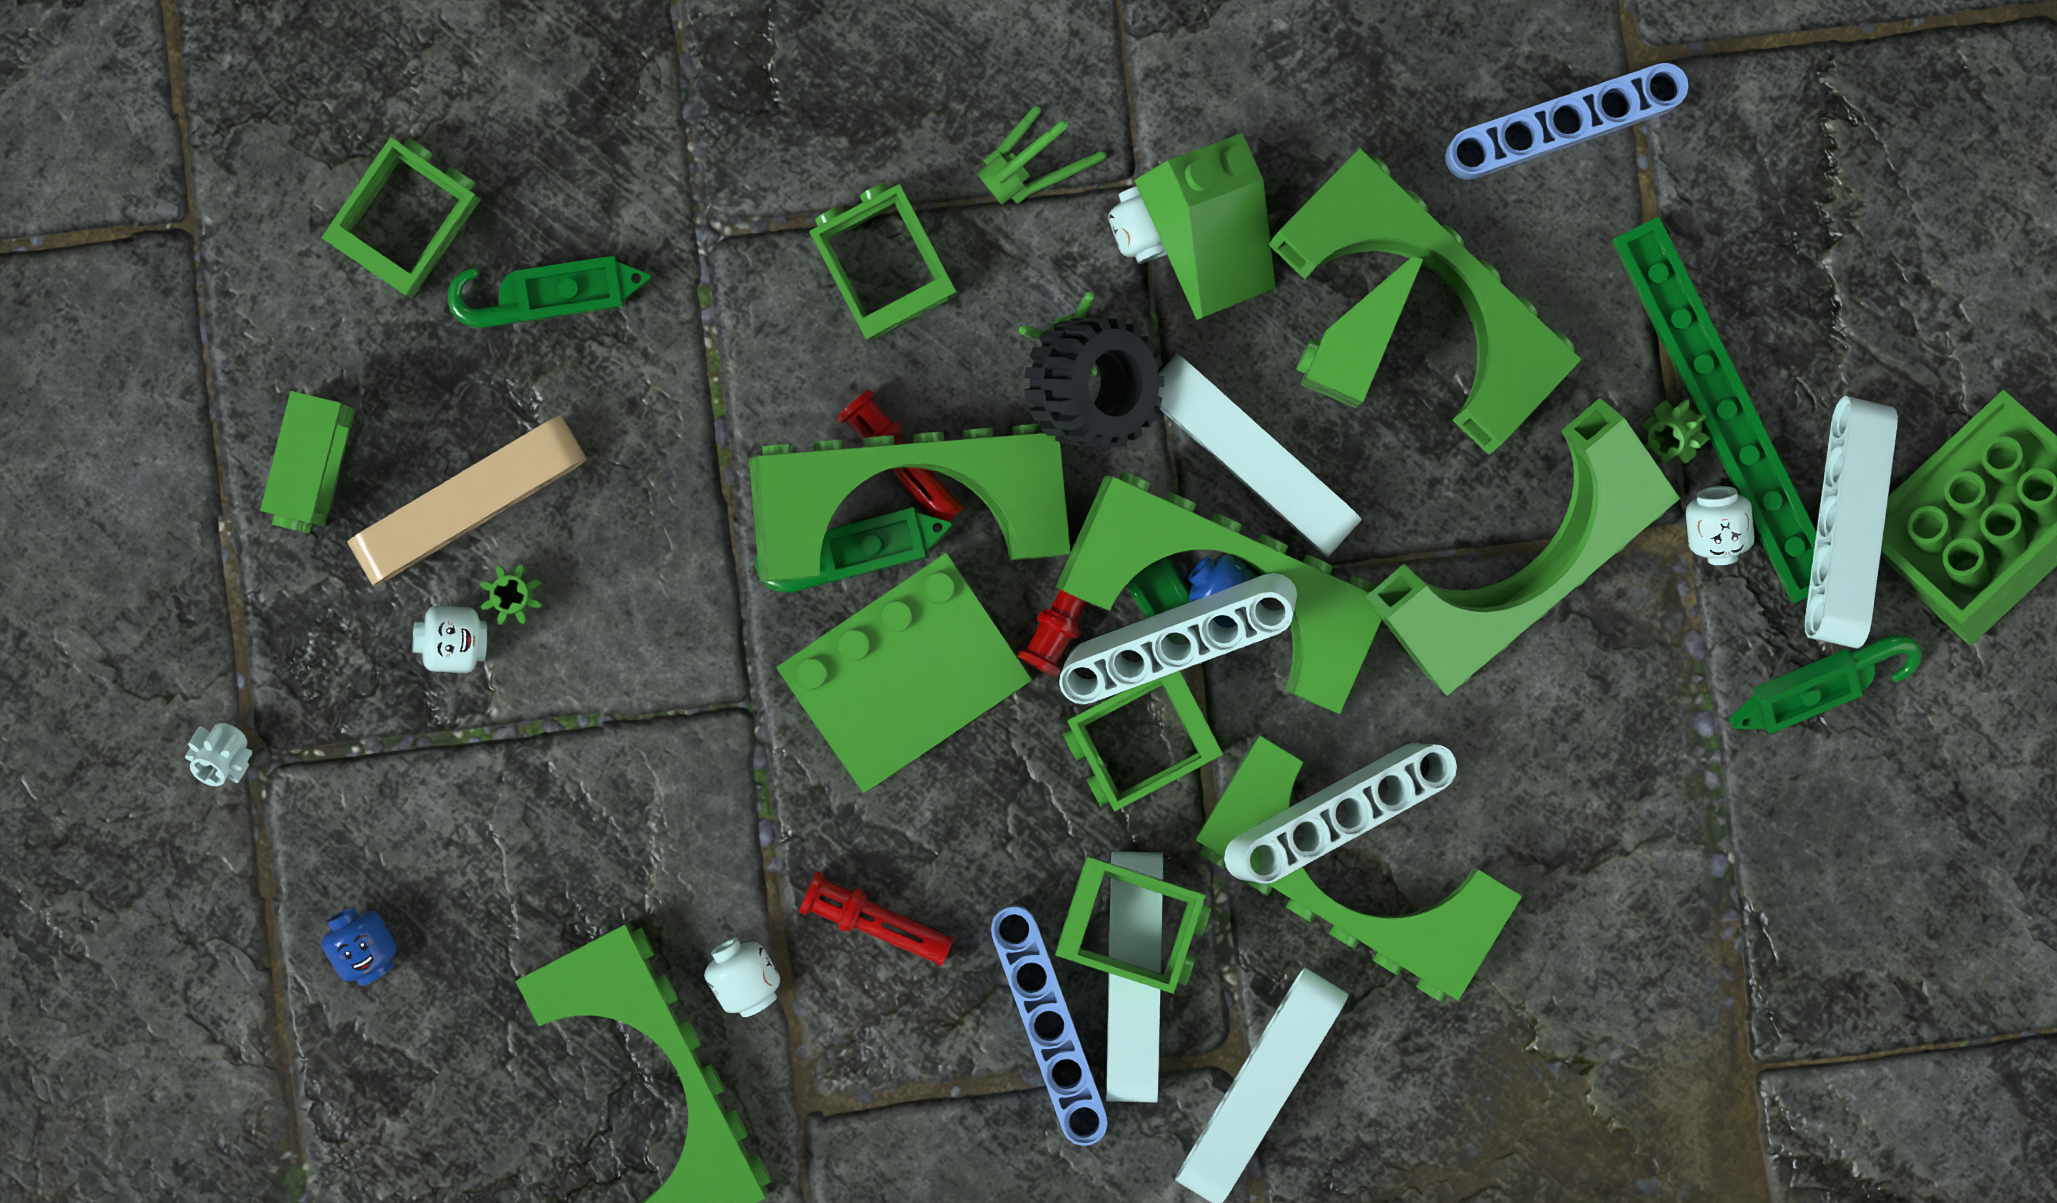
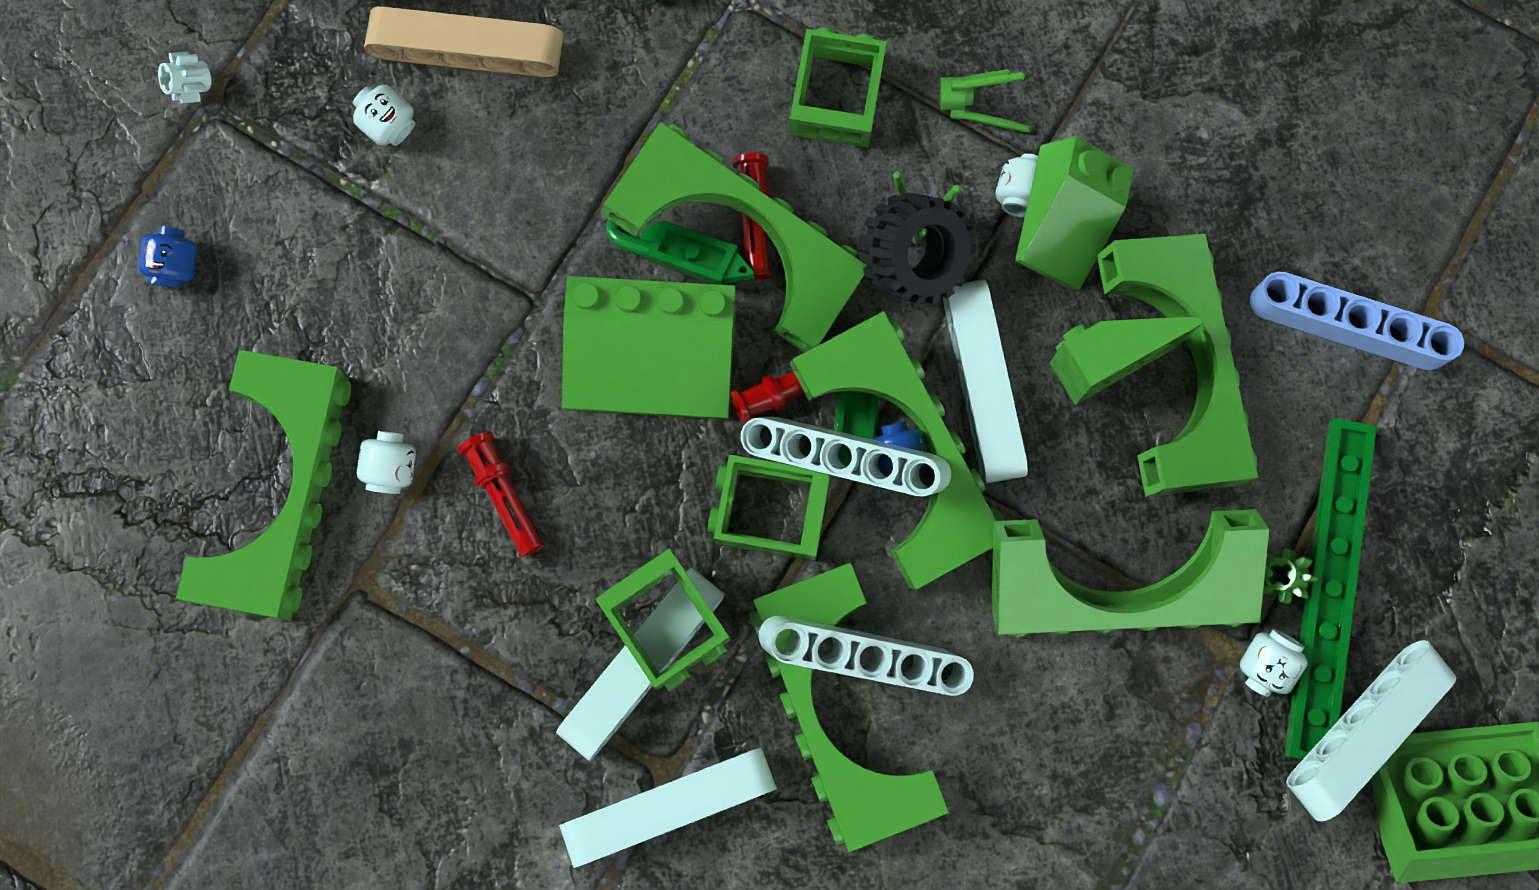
camera: 40 degrees right, 10 degrees down
(499, 602) = (439, 105): bright green gear -> none
(1049, 1050) = (542, 666): light blue beam -> none
(1822, 685) = (1269, 829): green plate -> none

